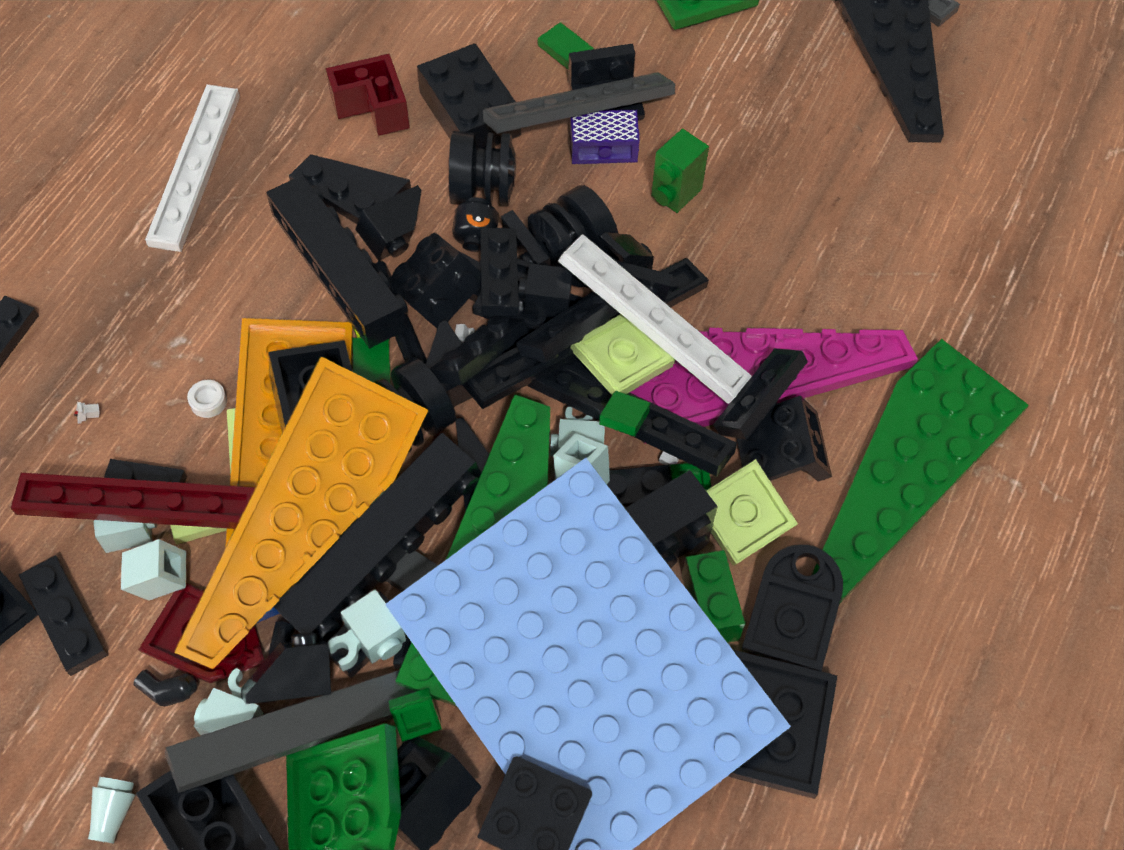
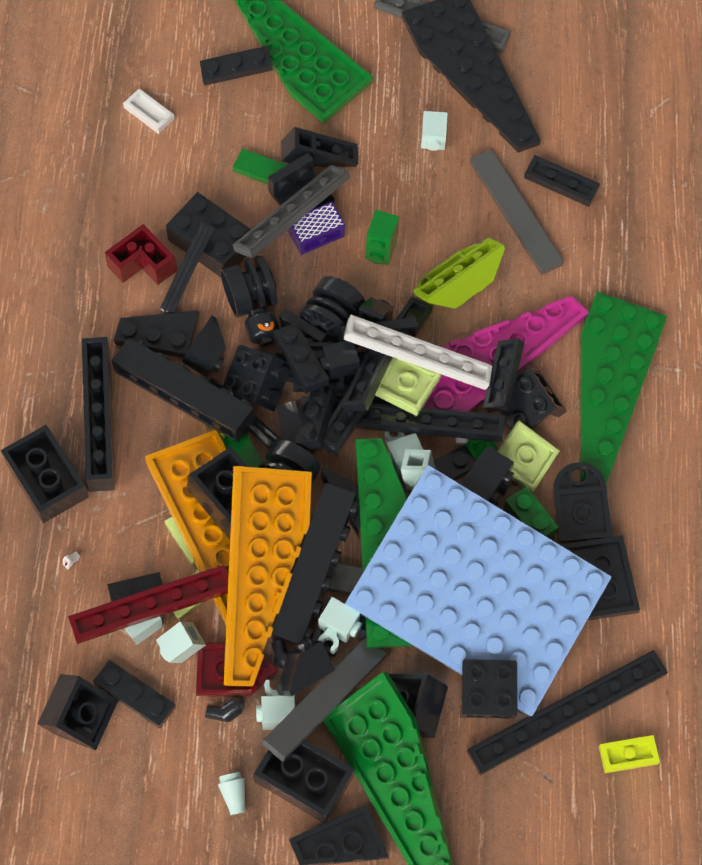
camera: 25 degrees left, 5 degrees up
(110, 294) = (45, 473): none -> black brick
(192, 168) = (40, 358): white tile -> none
(207, 398) = (145, 518): white tile -> none
(213, 252) = (98, 414): none -> black brick
(415, 714) = (388, 660): green tile -> none
(416, 120) = (187, 267): none -> black axle
(624, 413) = (428, 424): green tile -> none
(654, 50) = (322, 148): none -> black slope
(764, 255) = (461, 275): none -> lime wedge
(808, 78) = (434, 130): none -> light aqua brick
(875, 210) = (516, 212): none -> dark grey tile
(952, 190) = (562, 180): none -> black plate

